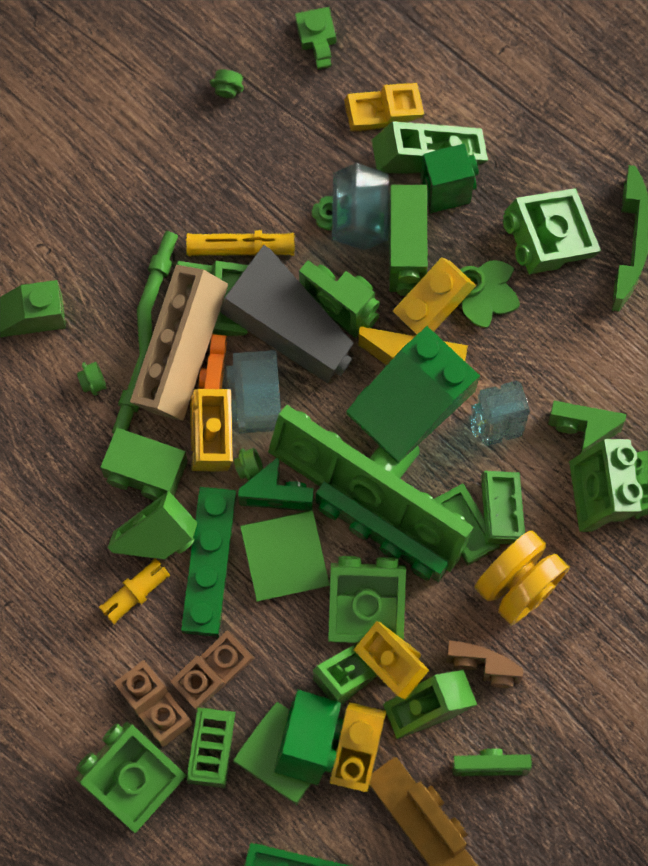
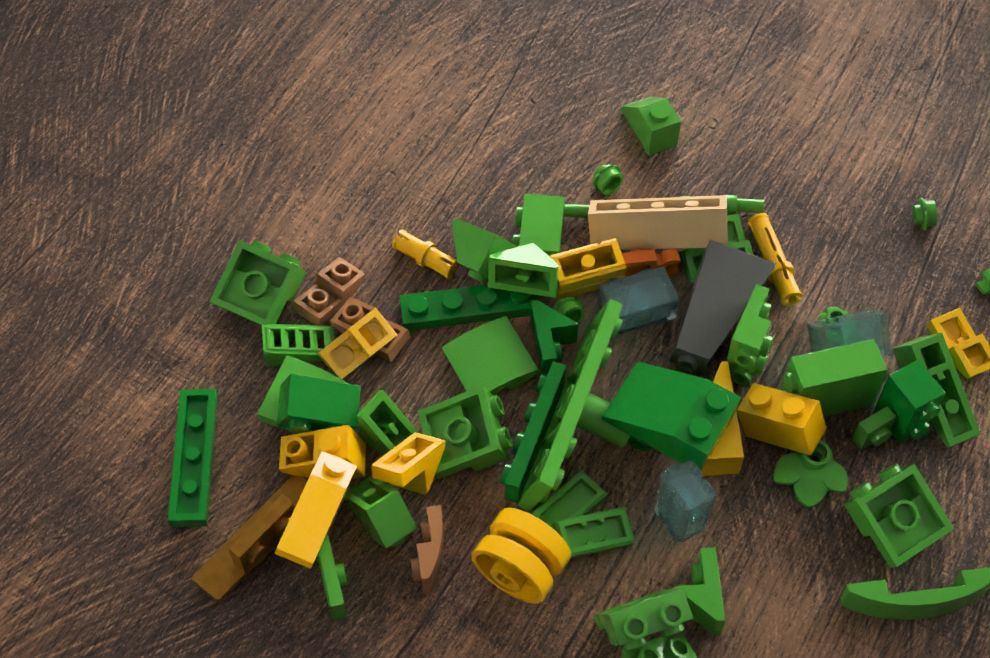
camera: 75 degrees right, 15 degrees down
(202, 490) = (524, 271): none -> bright green slope
(233, 680) = (357, 344): none -> yellow slope
(433, 759) = (316, 510): none -> yellow slope
(459, 219) = (874, 429): none -> bright green plate

